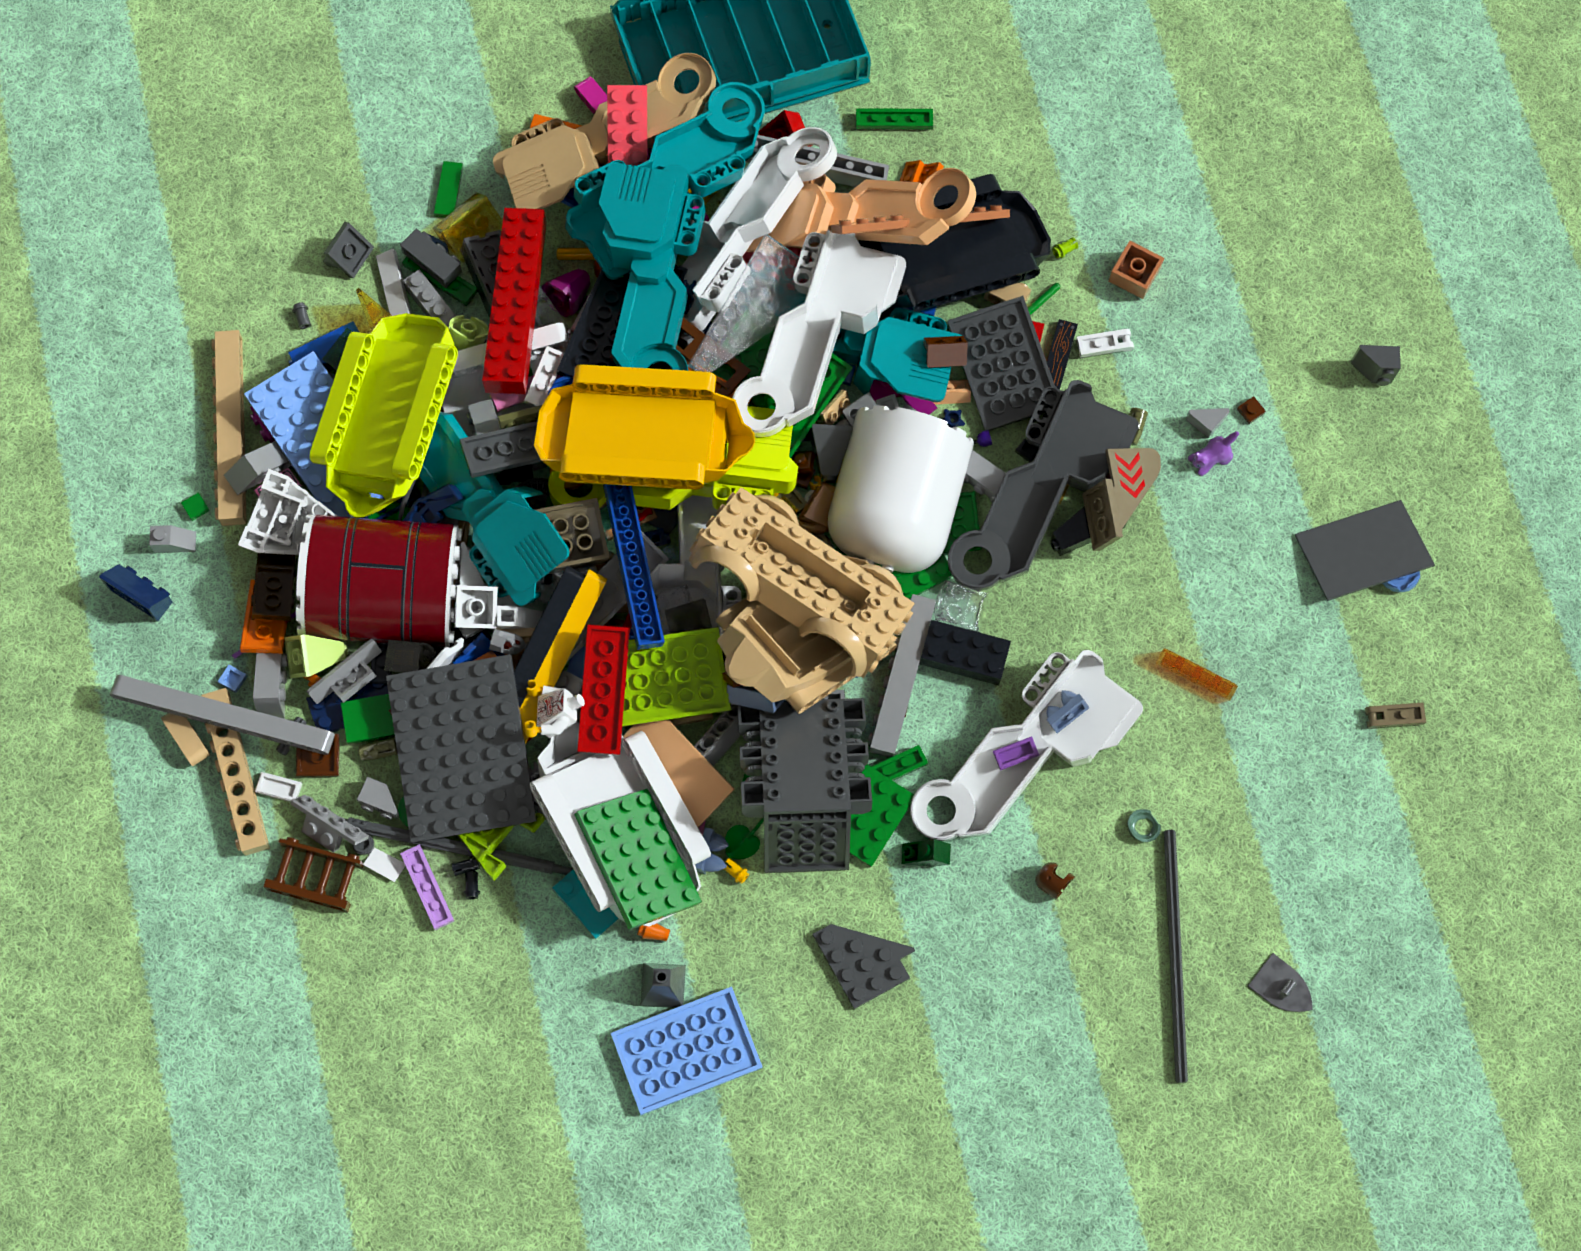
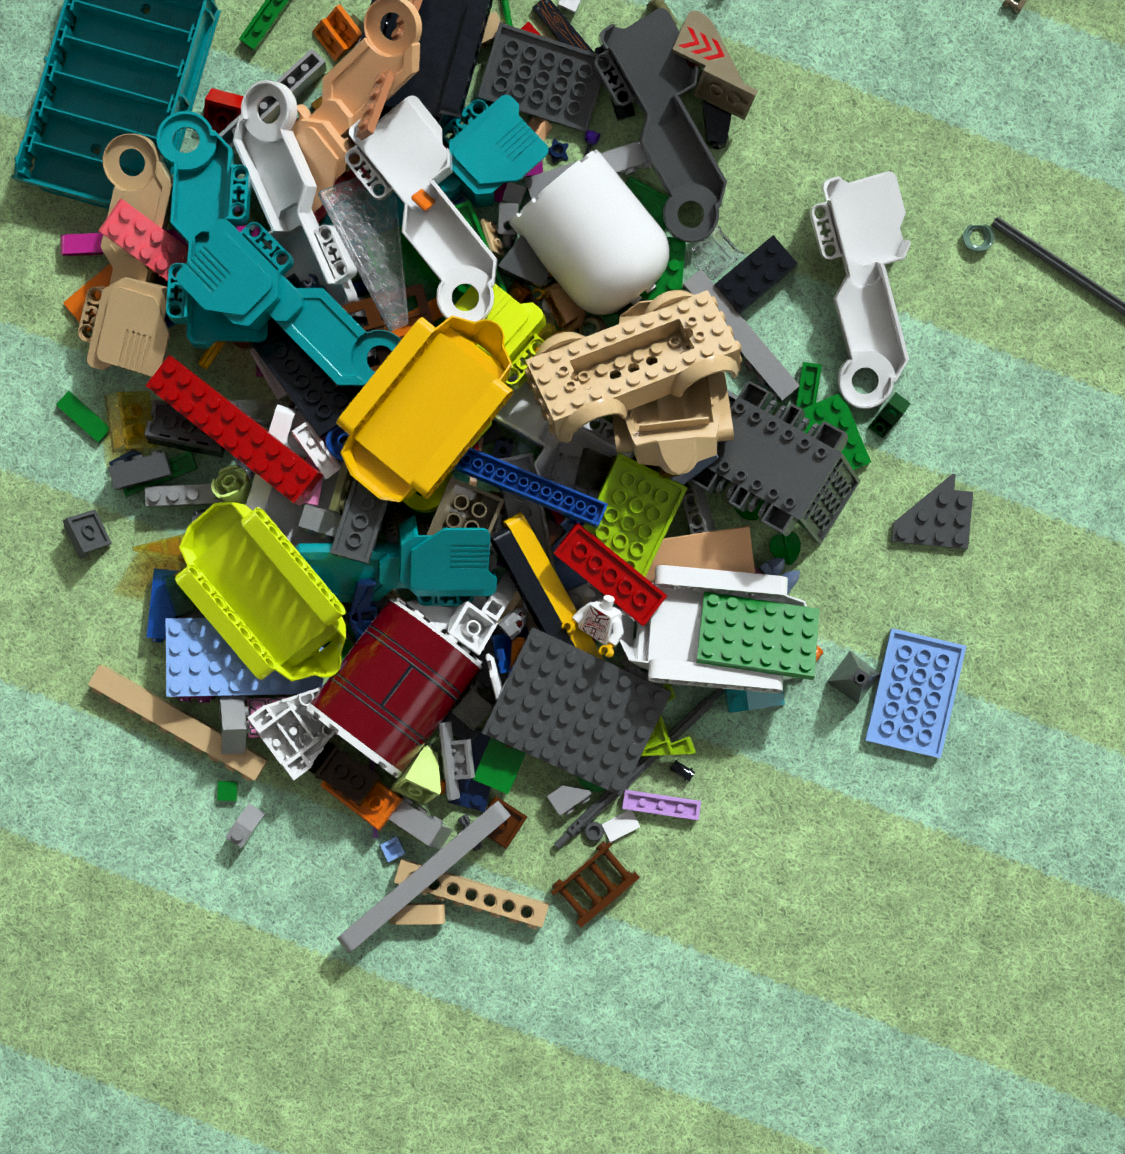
camera: 55 degrees left, 15 degrees up
(137, 590) = (271, 879): dark blue slope -> none
(278, 787) = (505, 867): white tile -> none
(300, 311) = (117, 605): dark grey pin -> none
(326, 826) = (563, 850): light grey bracket -> none
(378, 749) = (527, 772): olive hinge -> none
(393, 283) = (143, 516): white tile -> none
(465, 866) = (664, 765): black pin -> none
(568, 291) = (243, 379): magenta cone -> none
(736, 871) = (806, 565): yellow pin -> none
(818, 318) = (423, 200): none -> orange slope
(946, 351) = (511, 117): reddish brown panel -> none
(1016, 753) = (865, 294): medium lavender tile -> none
(1050, 882) = (971, 339): reddish brown helmet -> none
(1072, 708) = (856, 224): sand blue tile -> none
(1196, 674) = (891, 112): clear orange brick -> none

